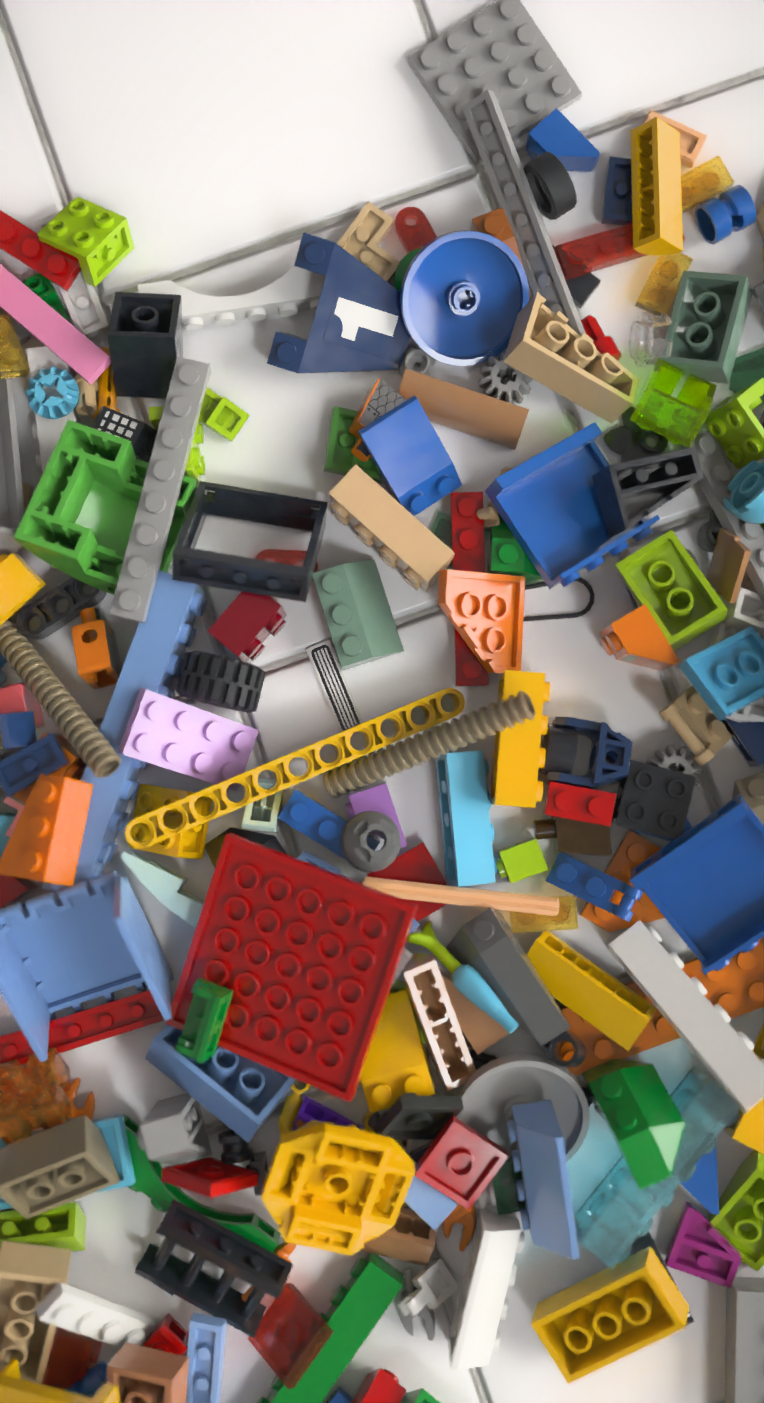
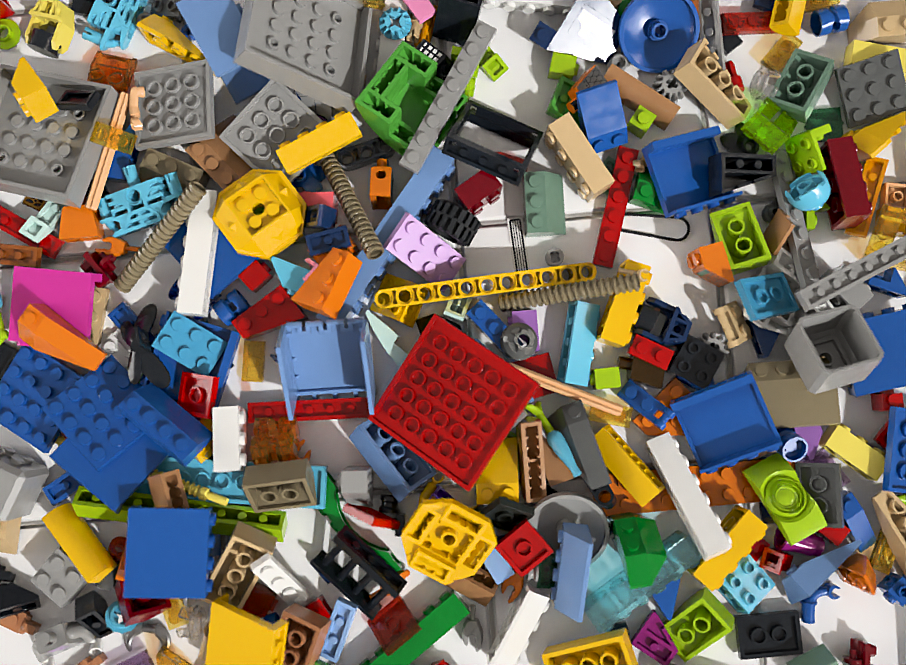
camera: 10 degrees right, 0 degrees up
(204, 1020) = (392, 421): green hinge -> none
(332, 390) = (563, 65): none -> lime brick
(404, 688) = (560, 257): none -> light grey bush
(432, 1286) = (486, 620): white plate -> none
(473, 447) = (640, 121): none -> lime brick
(487, 615) = (623, 223): orange plate -> none
(527, 689) = (626, 271): none -> tan hand

